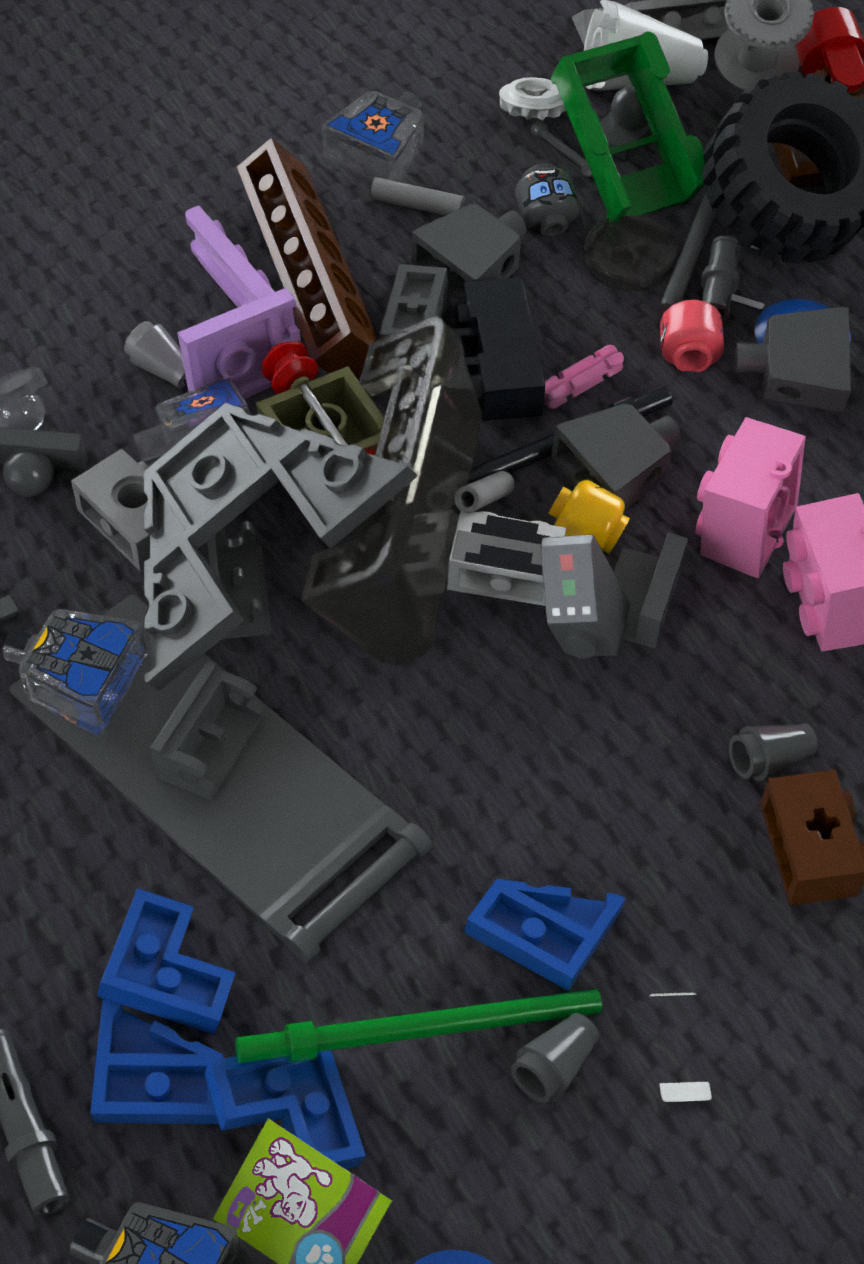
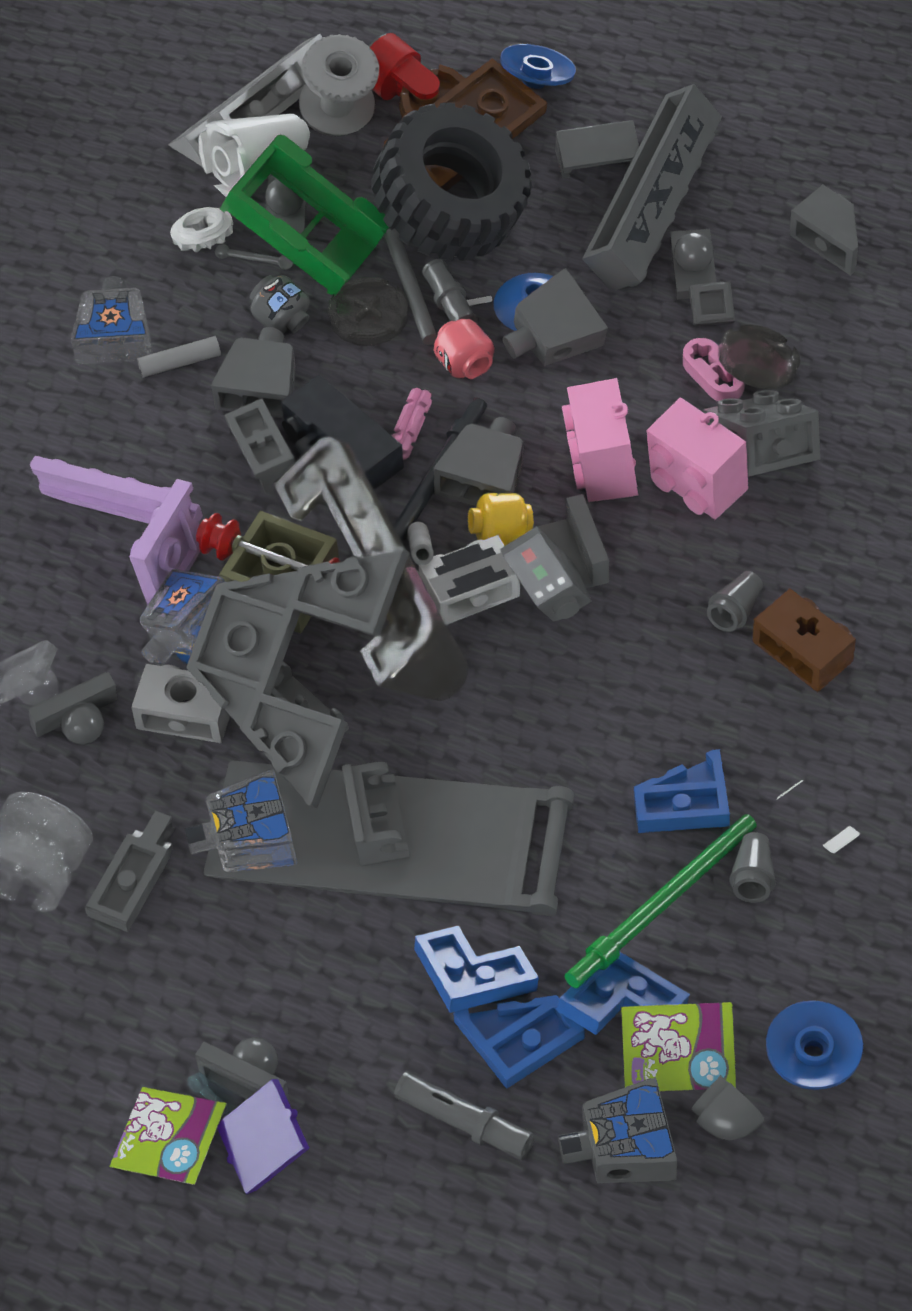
camera: 30 degrees left, 0 degrees up
(156, 352) = (99, 584): light grey cone -> none
(308, 259) = (152, 449): reddish brown brick -> none

